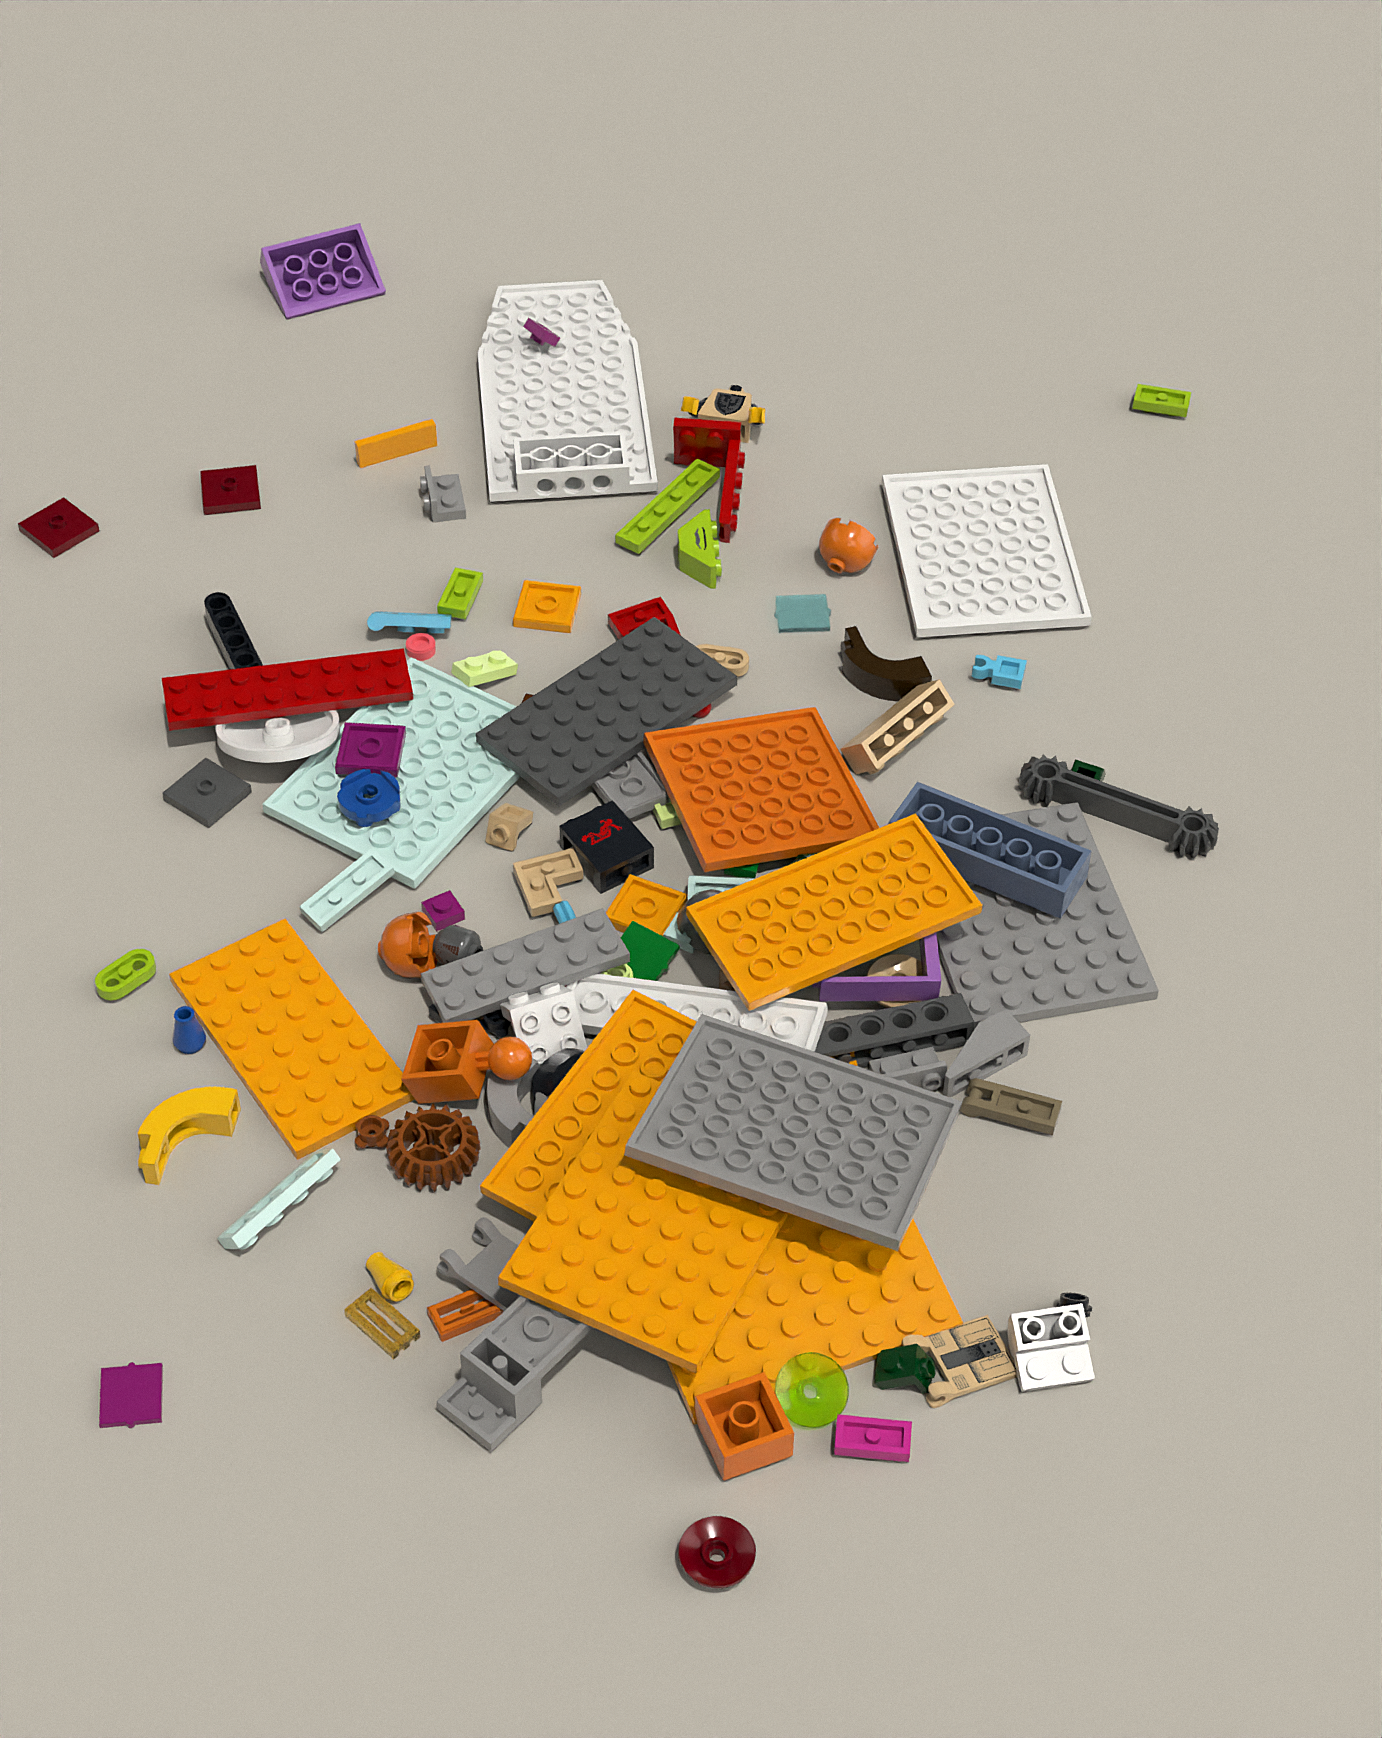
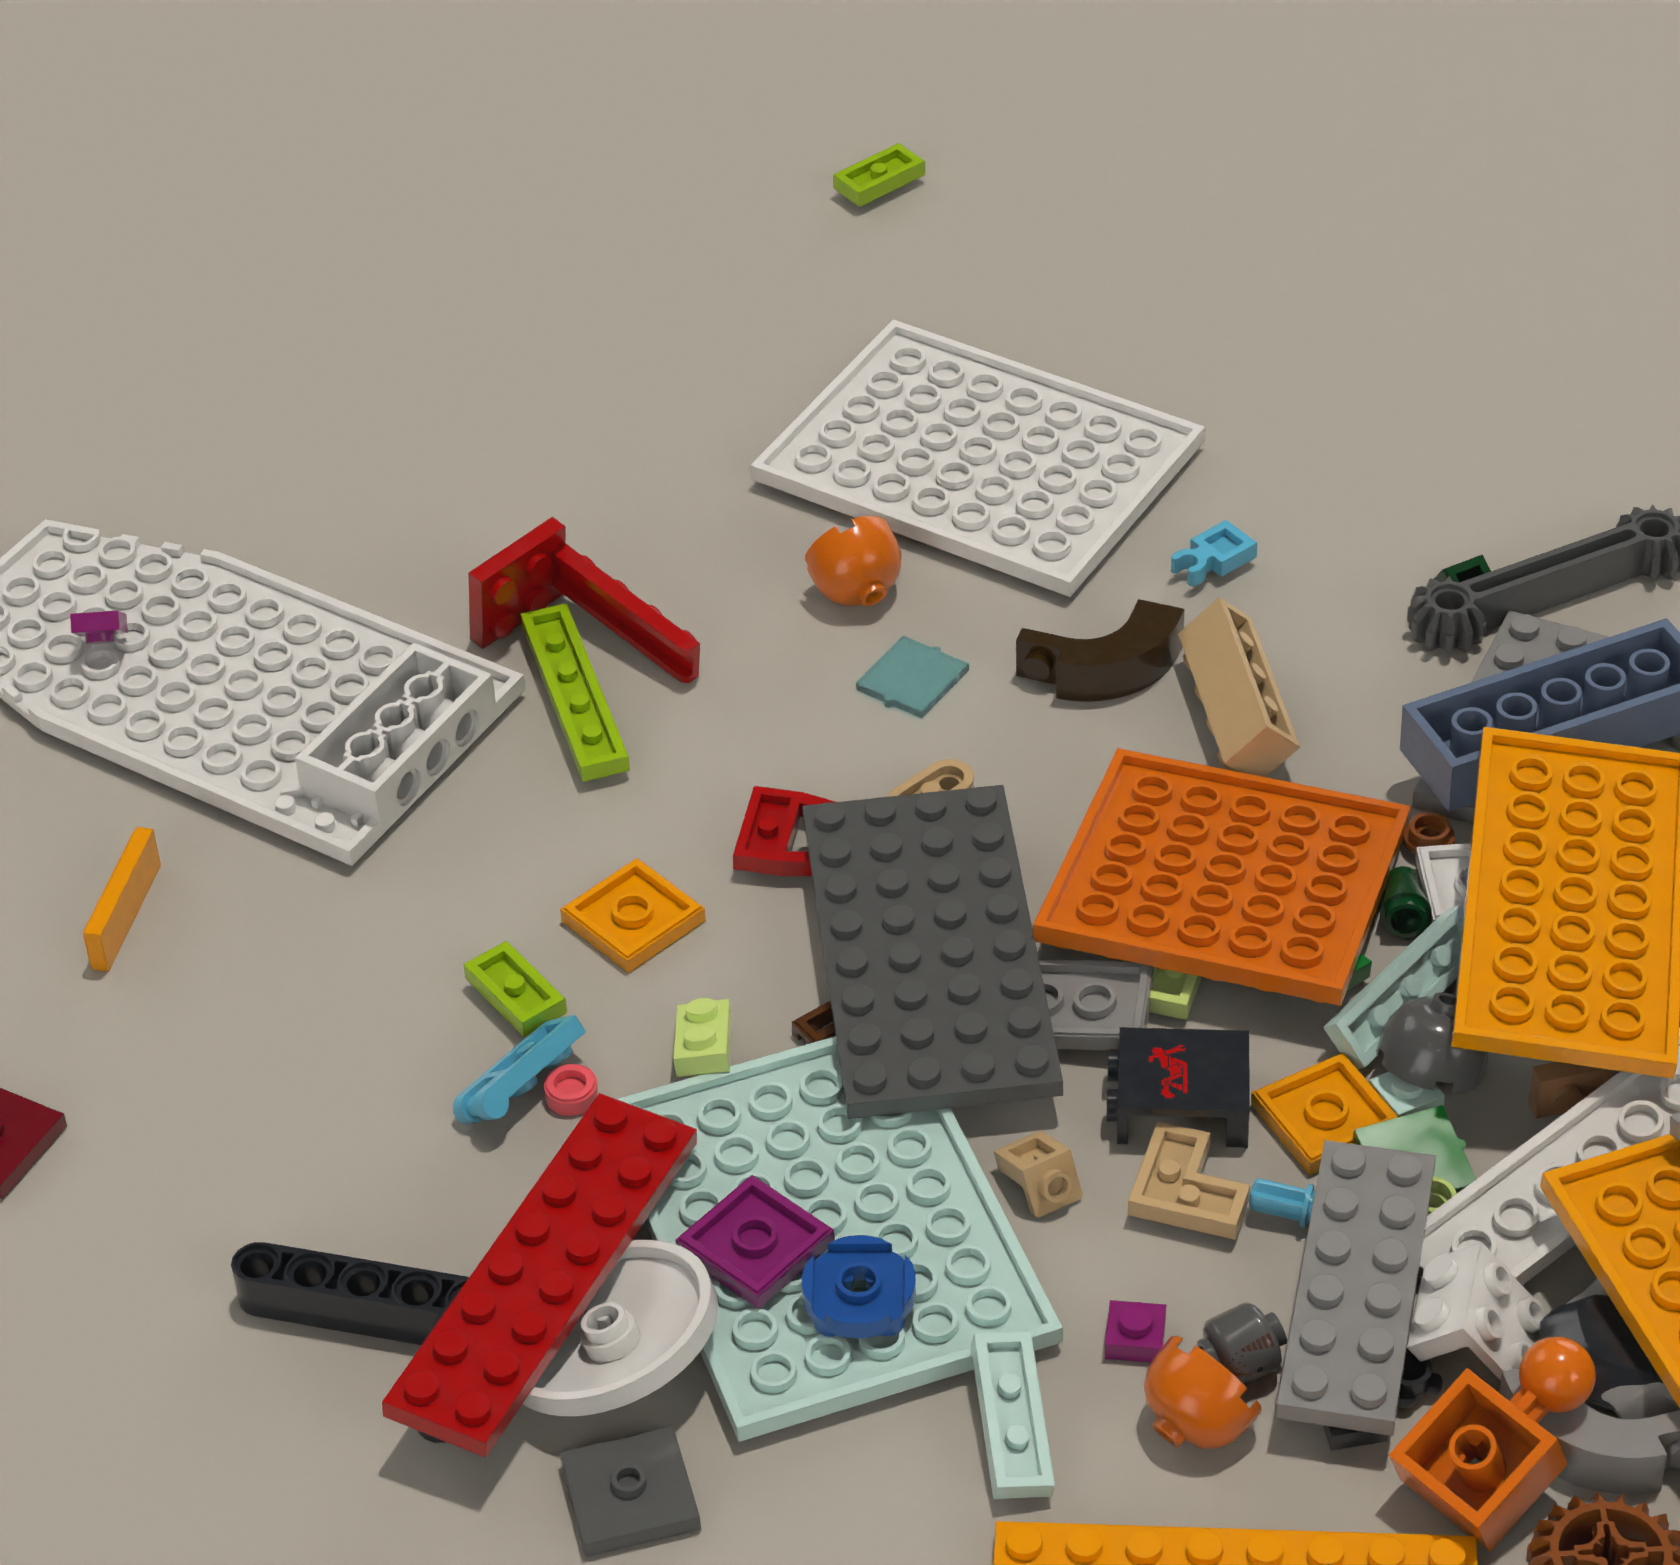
camera: 50 degrees left, 5 degrees down
(443, 496) = (287, 907): light grey bracket -> none
(698, 549) = (703, 706): lime slope -> none
(727, 406) = (466, 534): torso -> none

